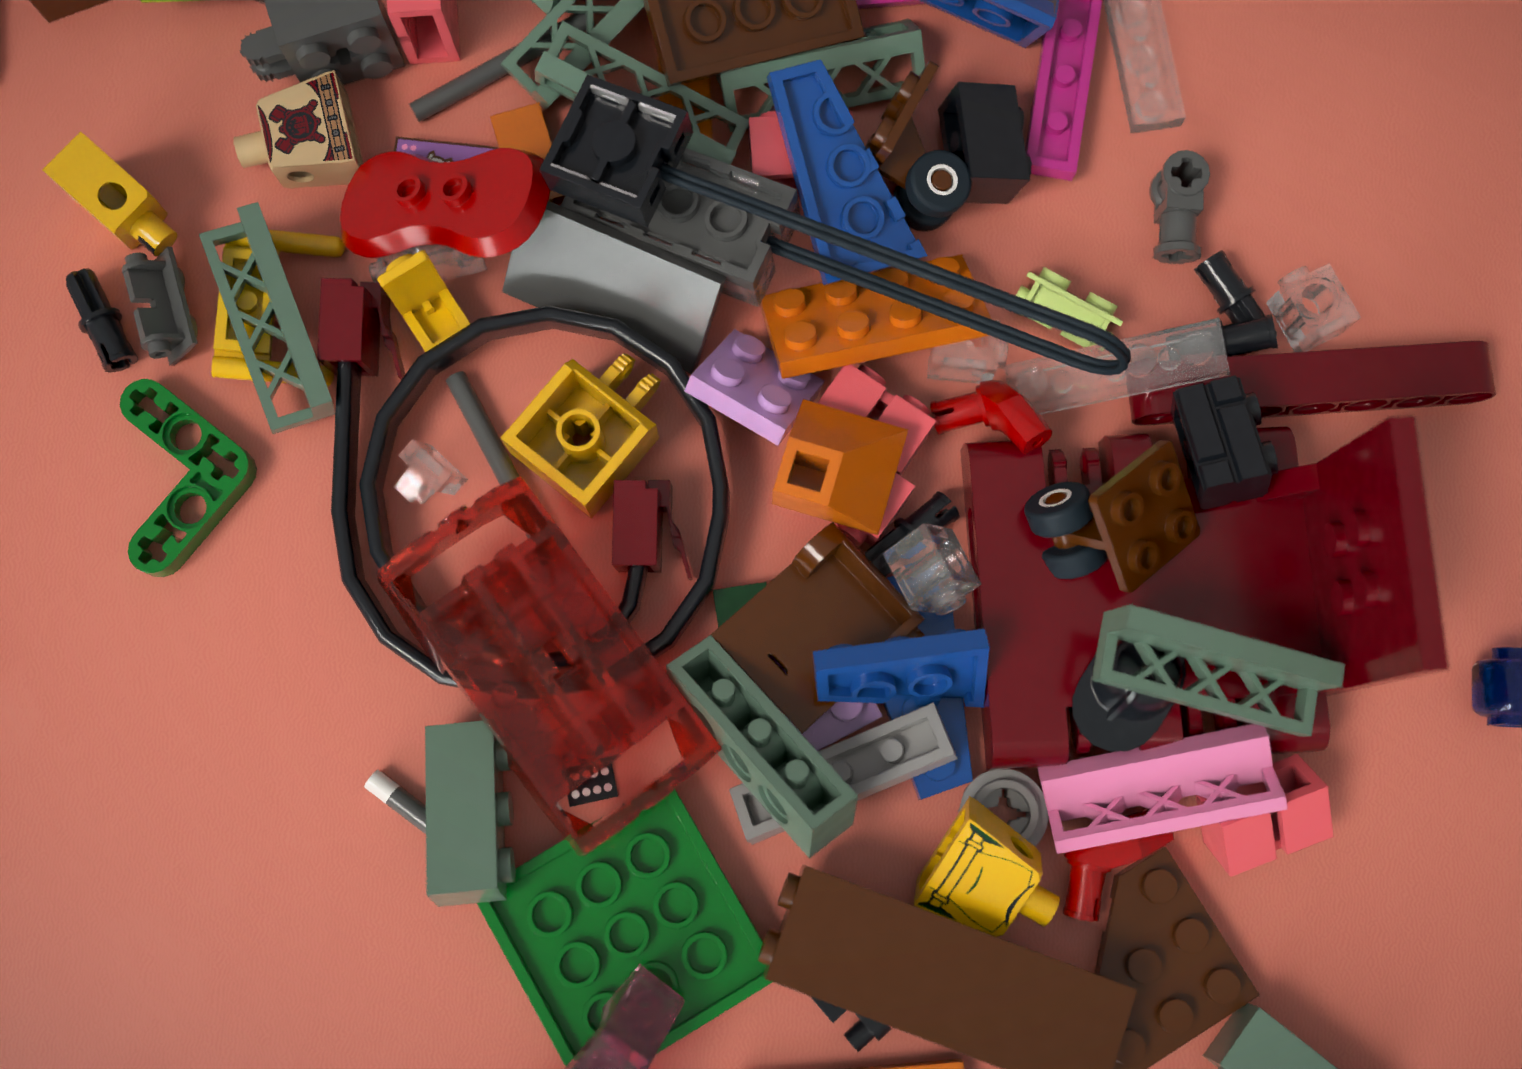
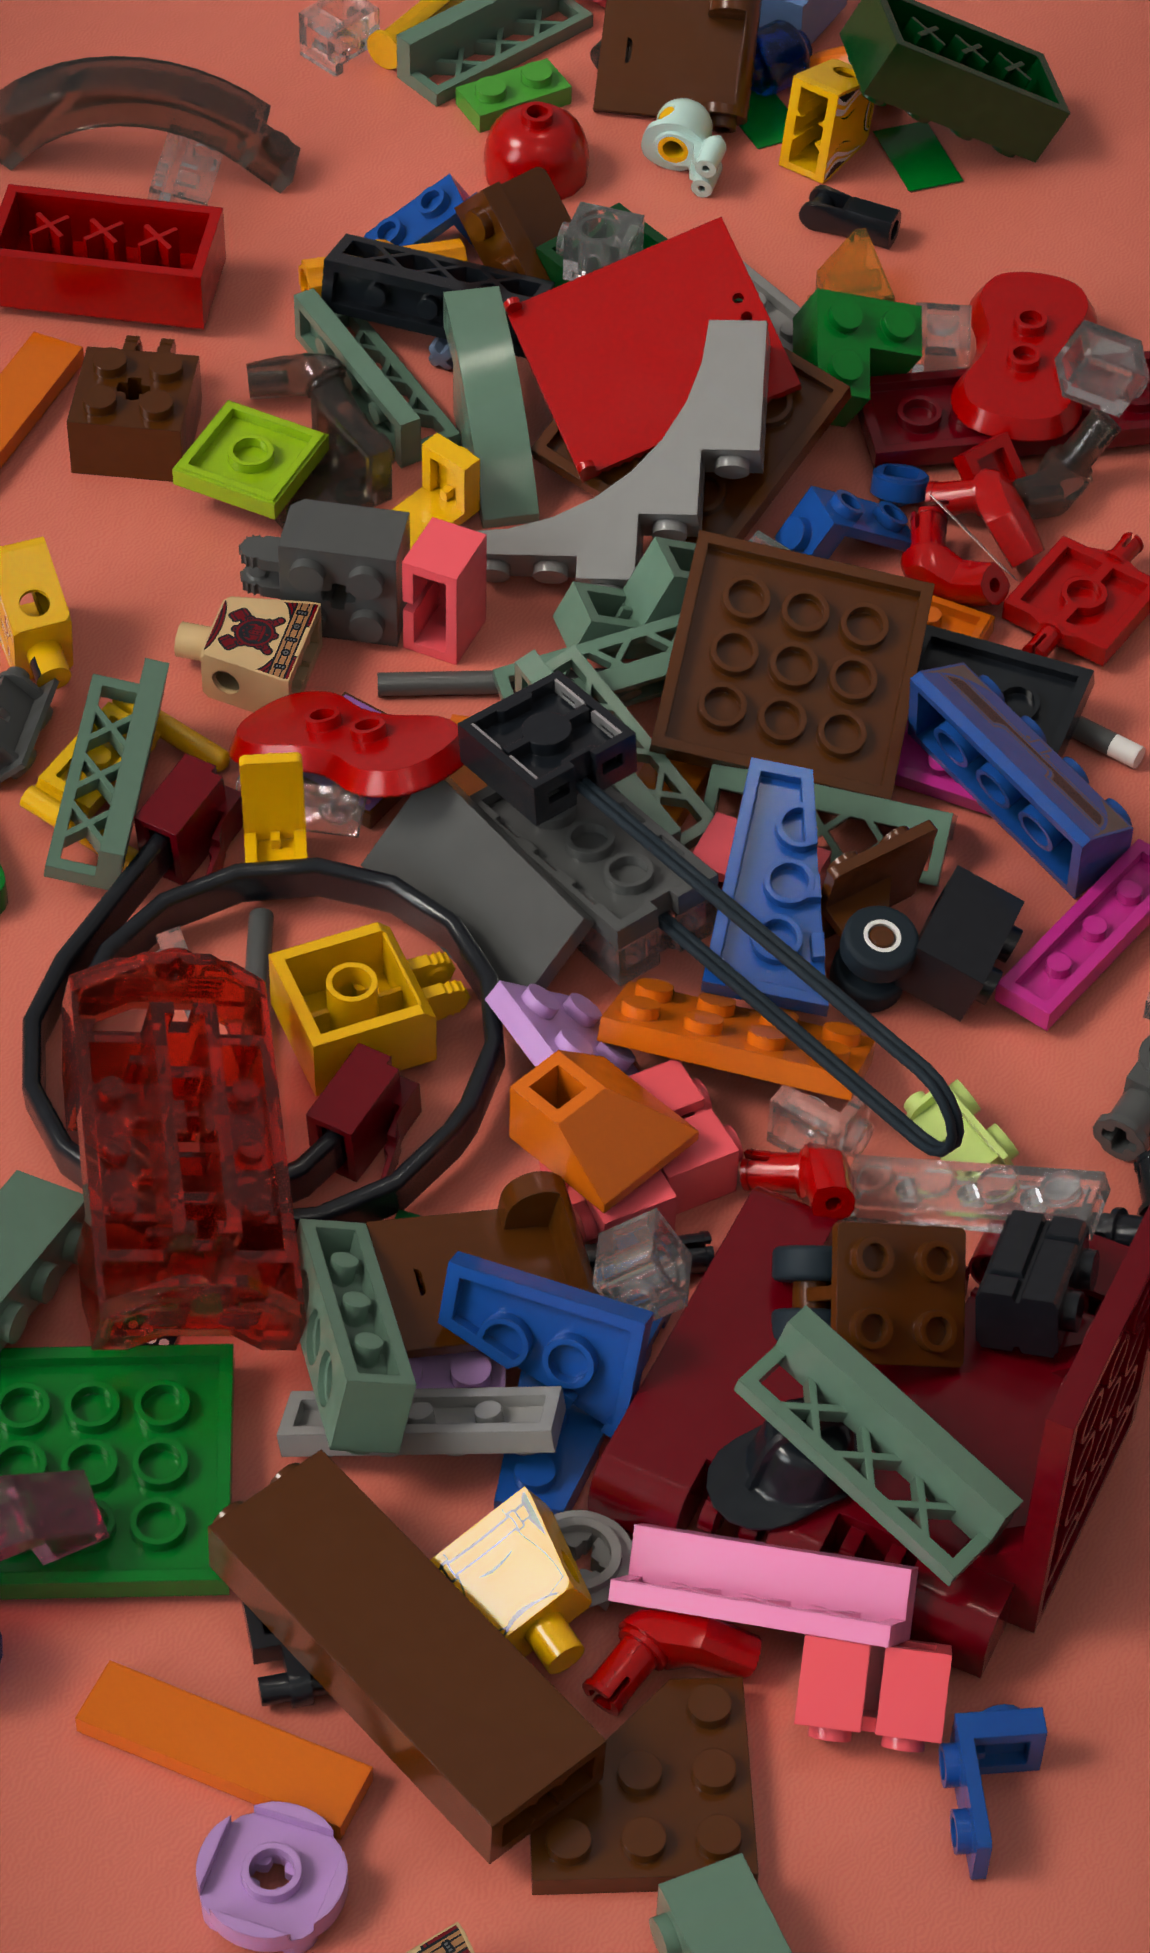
camera: 30 degrees right, 30 degrees down
(1358, 803) = (986, 1743): none -> blue bracket

